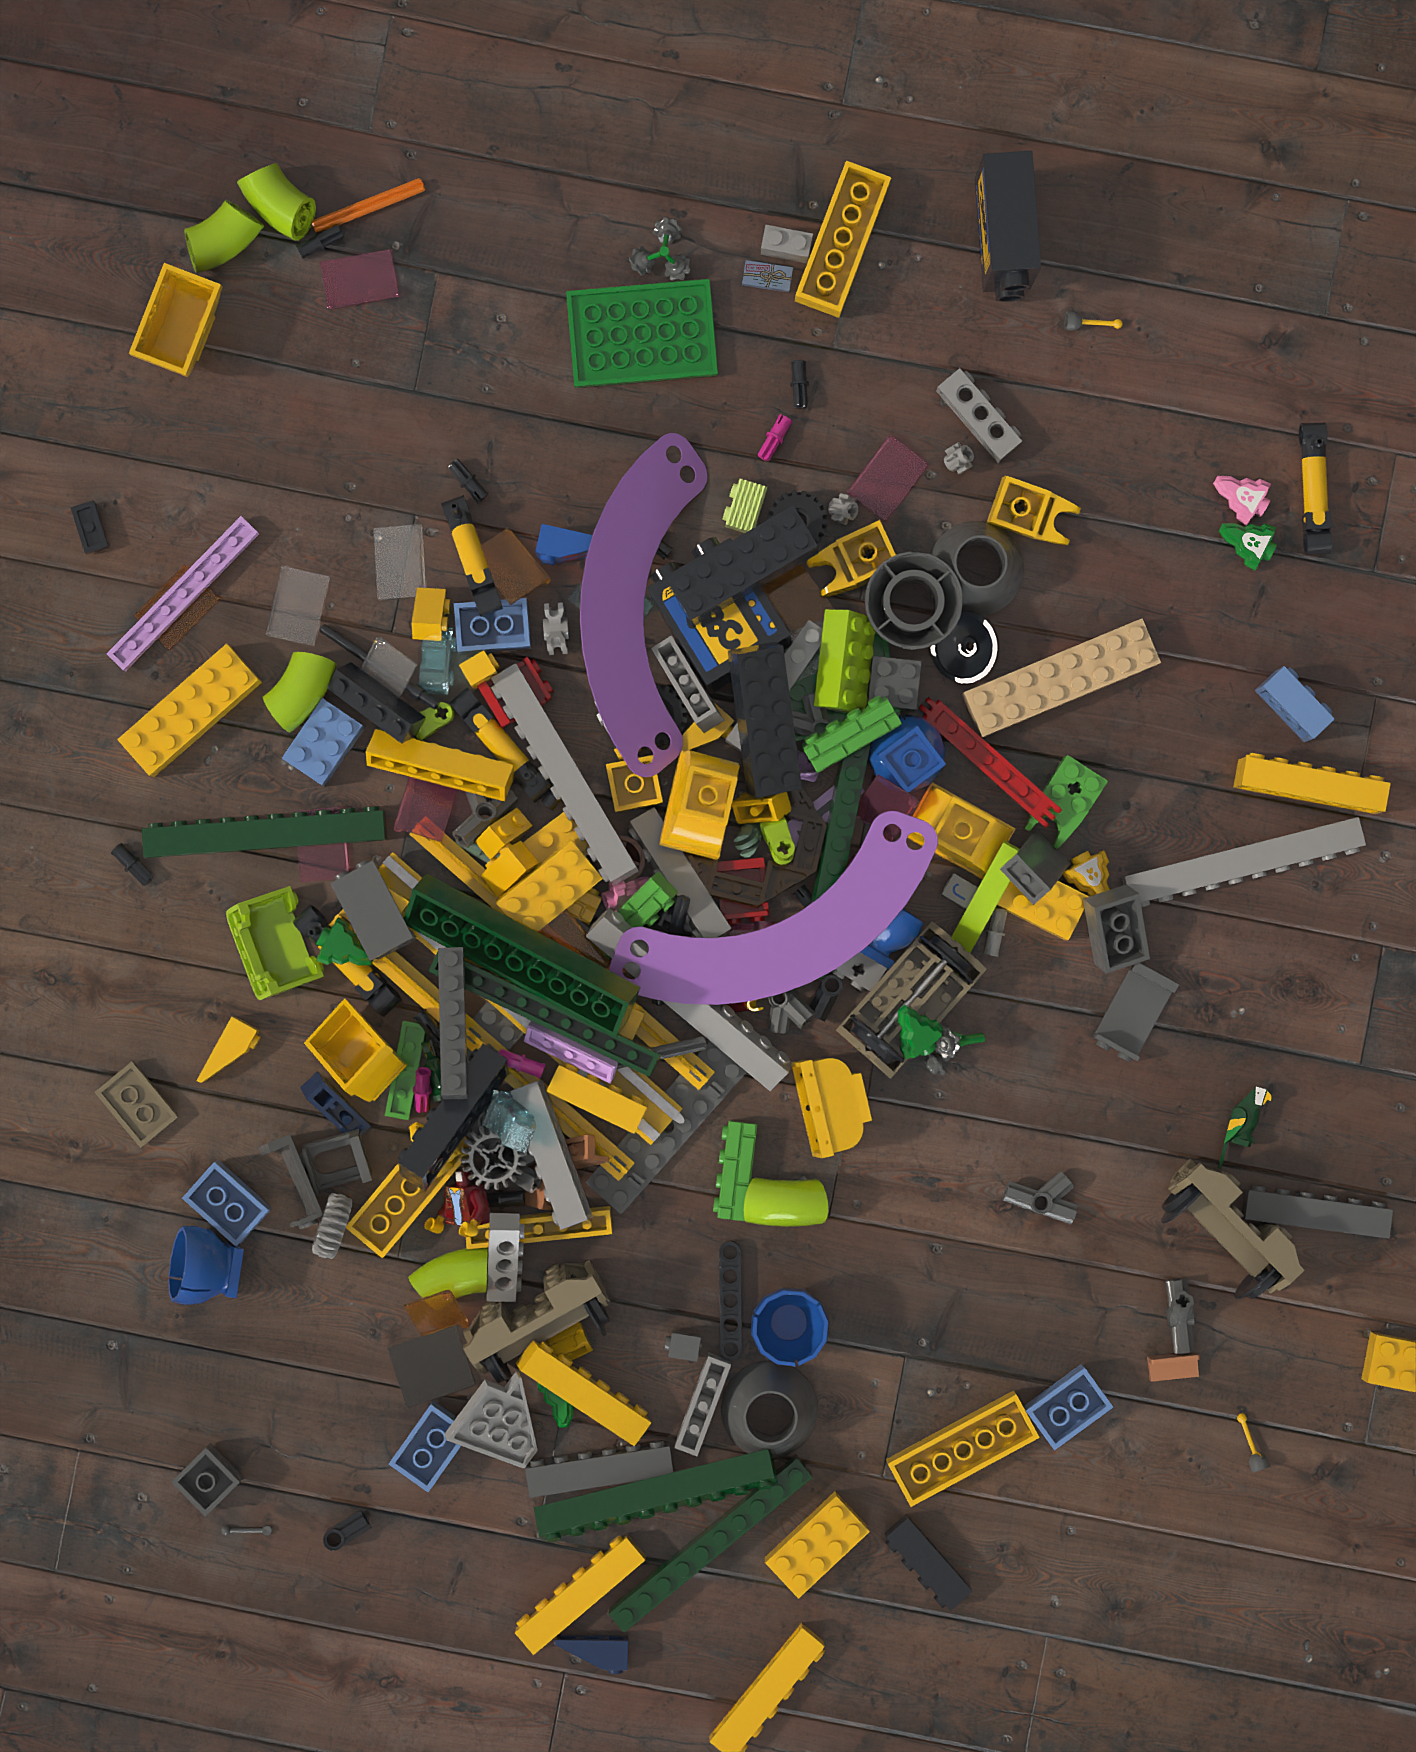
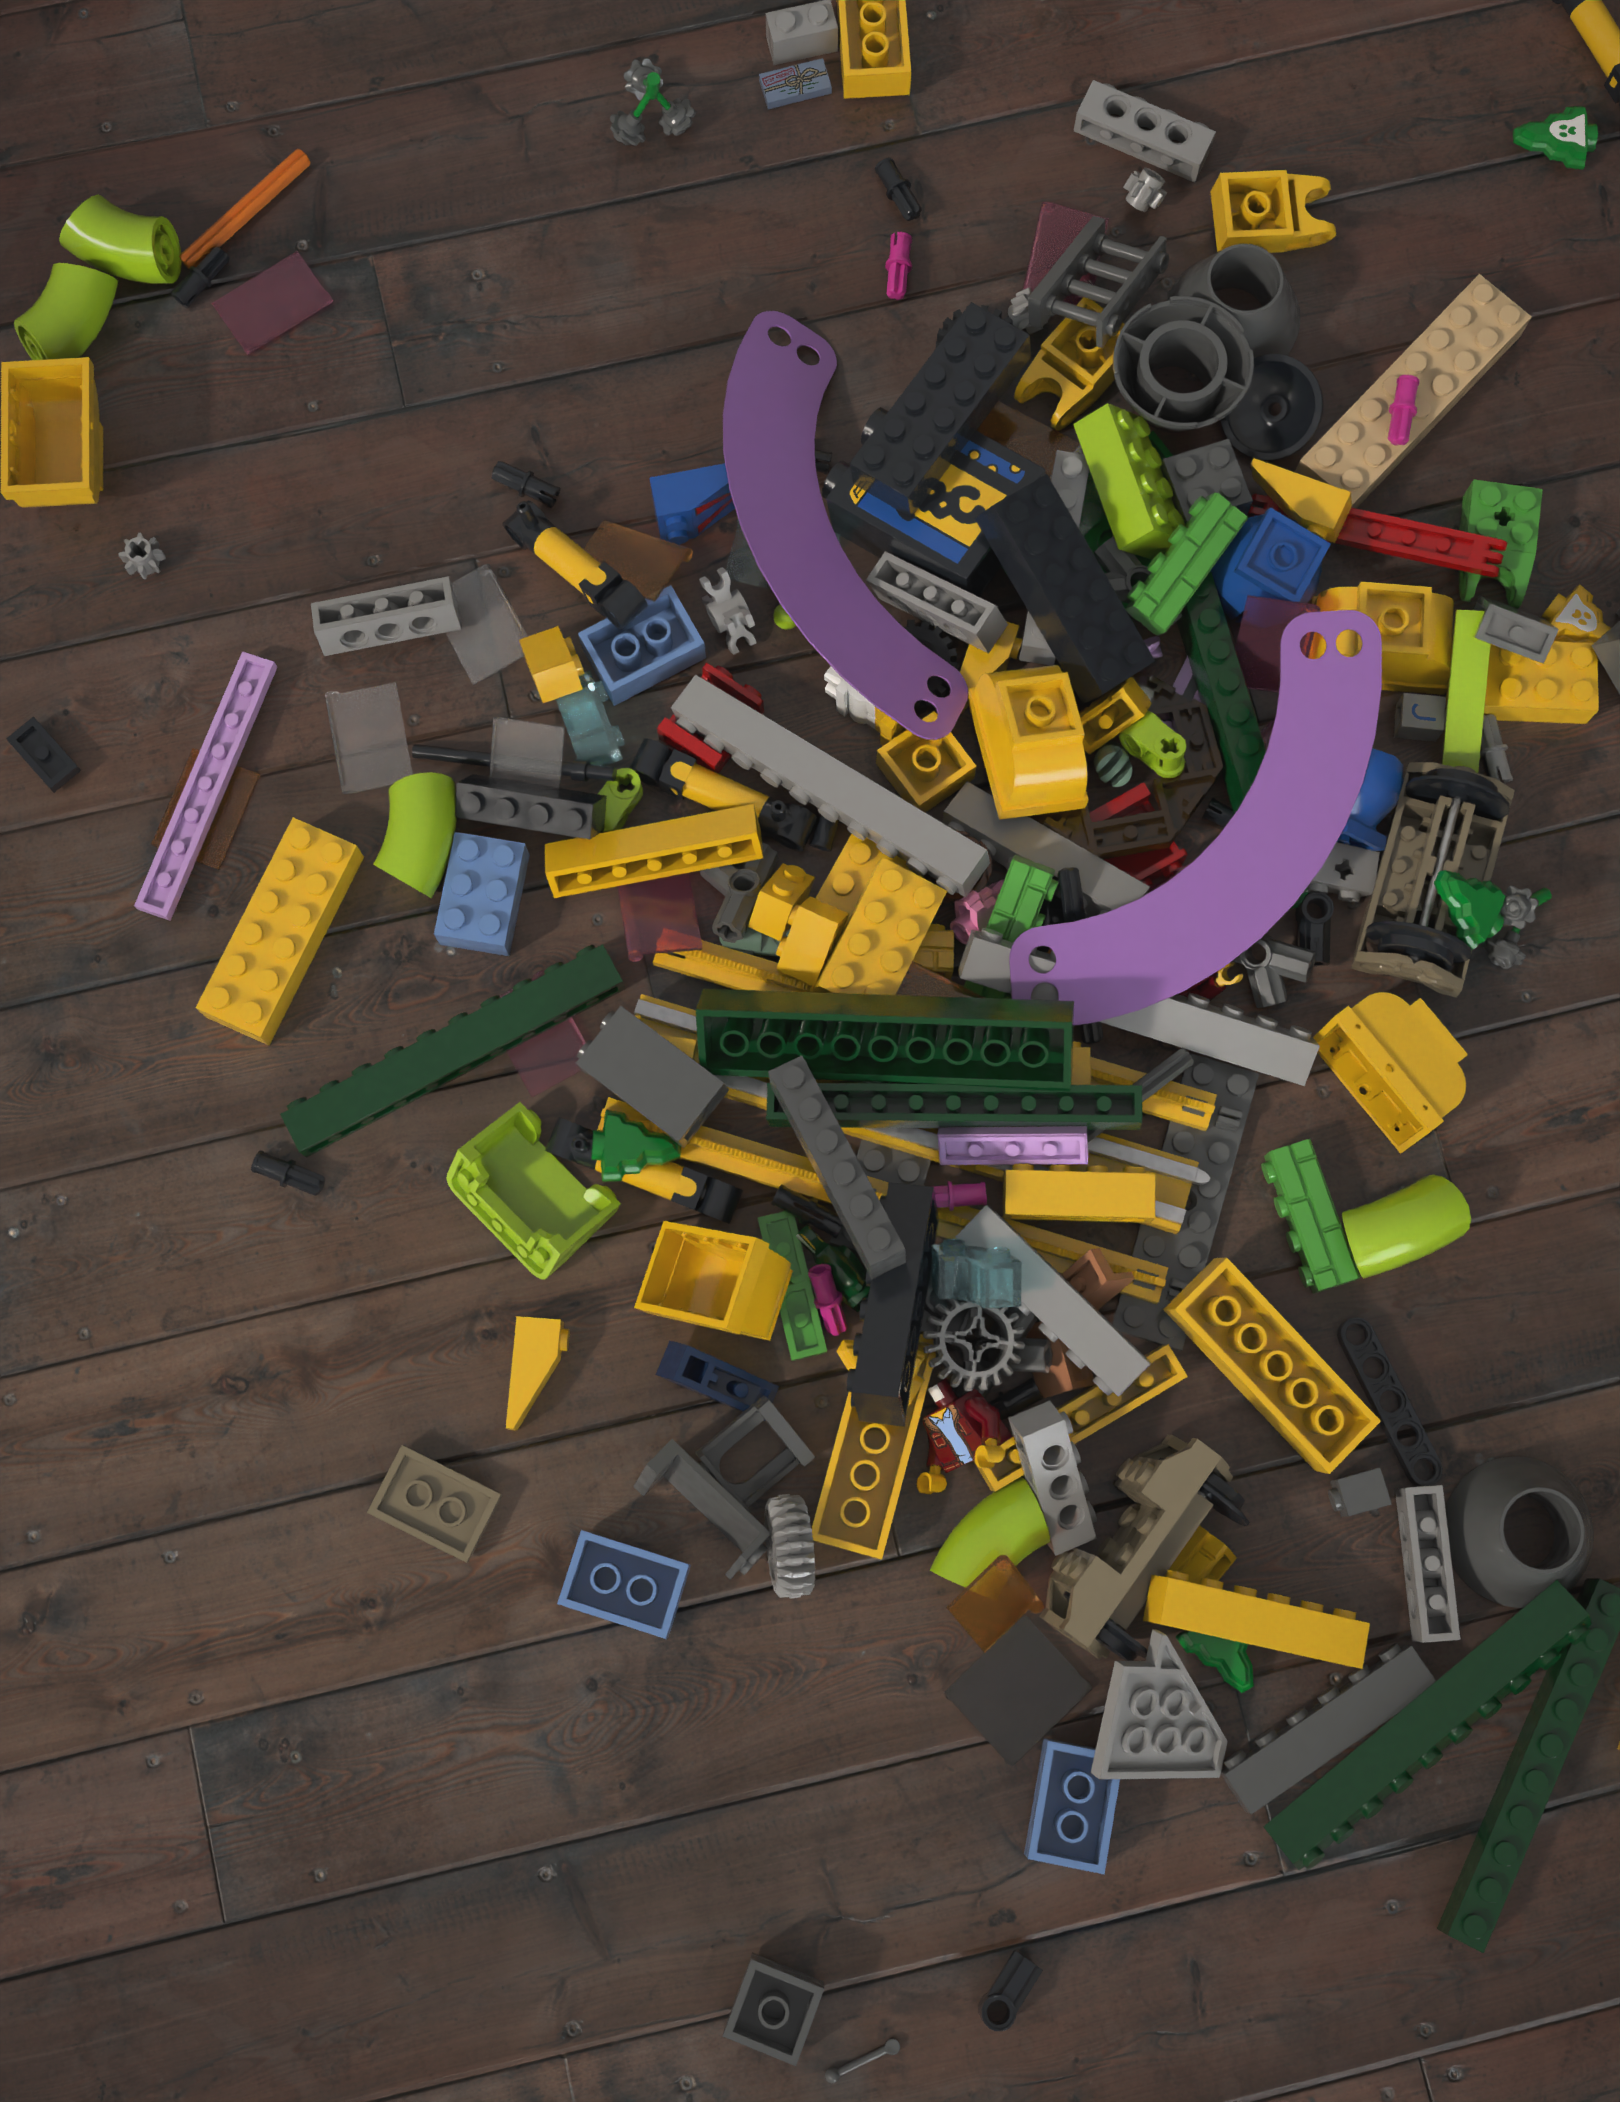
camera: 20 degrees left, 10 degrees down
(204, 1266) = (630, 1687): blue plate -> none
(210, 421) = (140, 546): none -> light grey gear
(340, 534) = (385, 616): none -> light grey brick
(479, 668) = (649, 703): yellow brick -> none
(579, 1594) = (1387, 1927): yellow brick -> none
(602, 1651) = (1461, 1997): dark blue slope -> none
(641, 333) = (668, 213): green plate -> none
(665, 1249) = (1272, 1365): none -> yellow brick
(745, 506) = (901, 357): yellowish green brick -> none
(790, 1326) = (1500, 1390): blue plate -> none
(887, 493) = (1080, 260): none -> dark grey fence
(953, 724) = (1308, 501): none -> yellow slope
(1041, 692) = (1403, 409): none -> dark pink axle
(1244, 496) = (1523, 87): bright pink rock -> none

